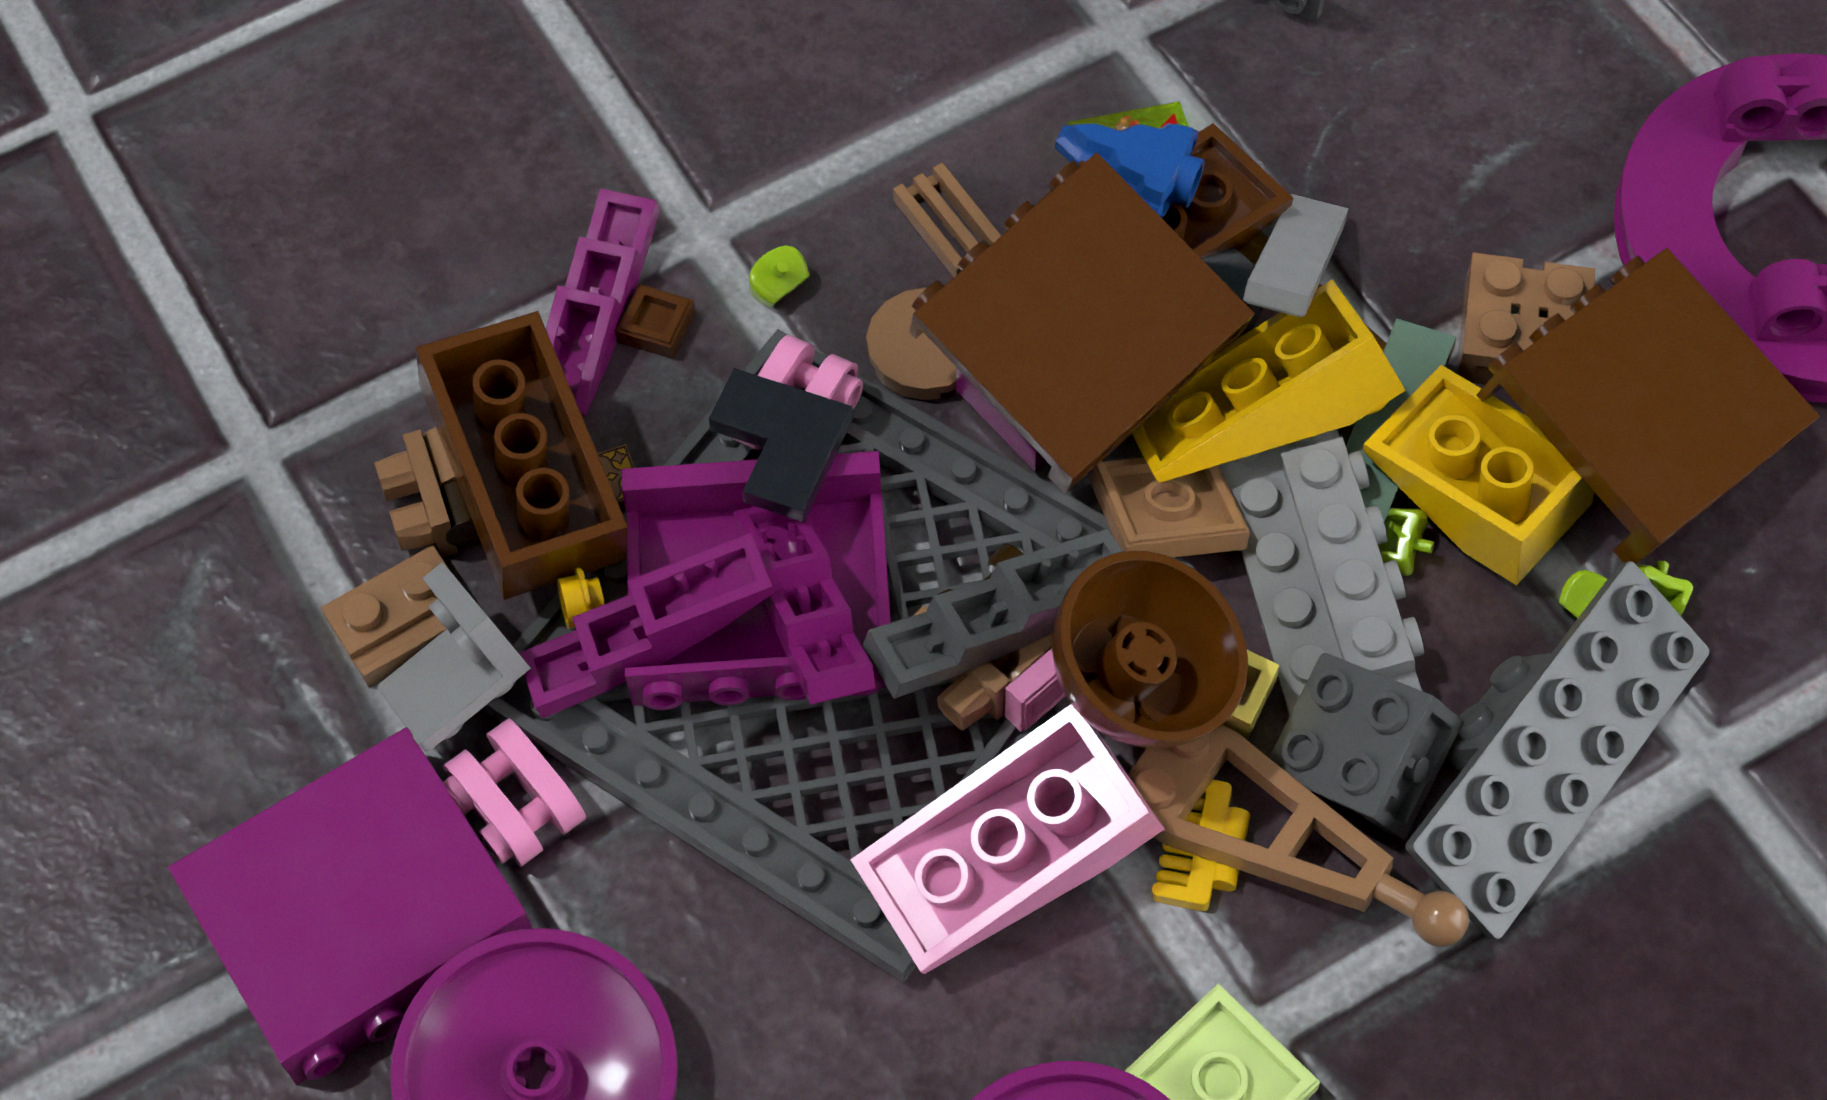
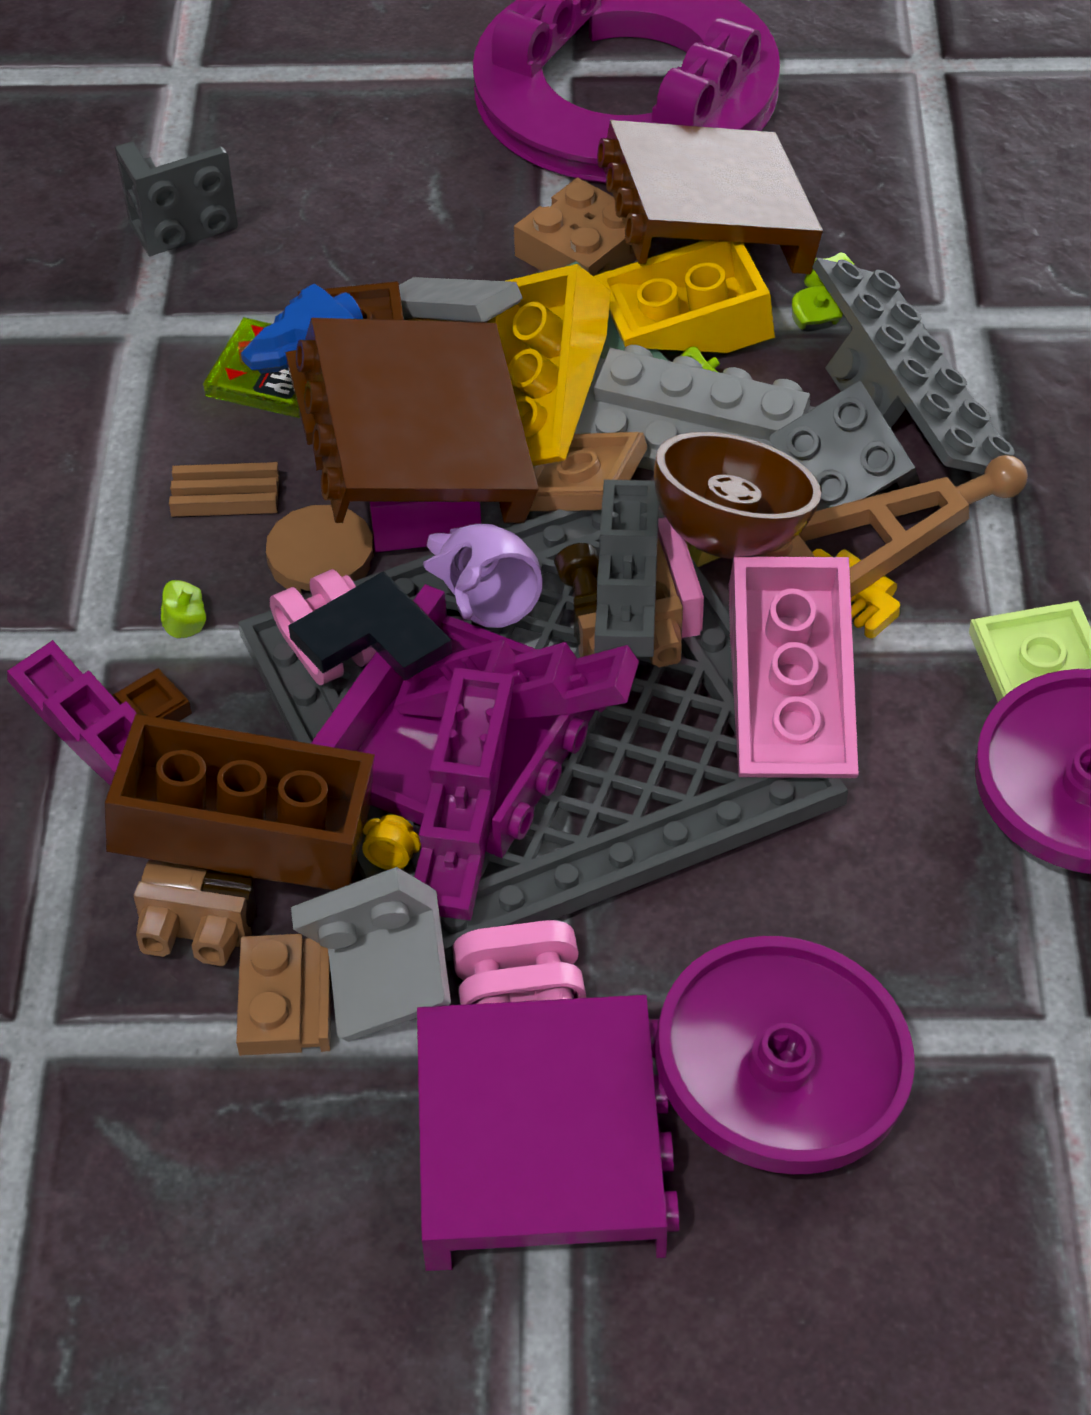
camera: 60 degrees left, 10 degrees down
(948, 496) = (488, 573): none -> lavender piece

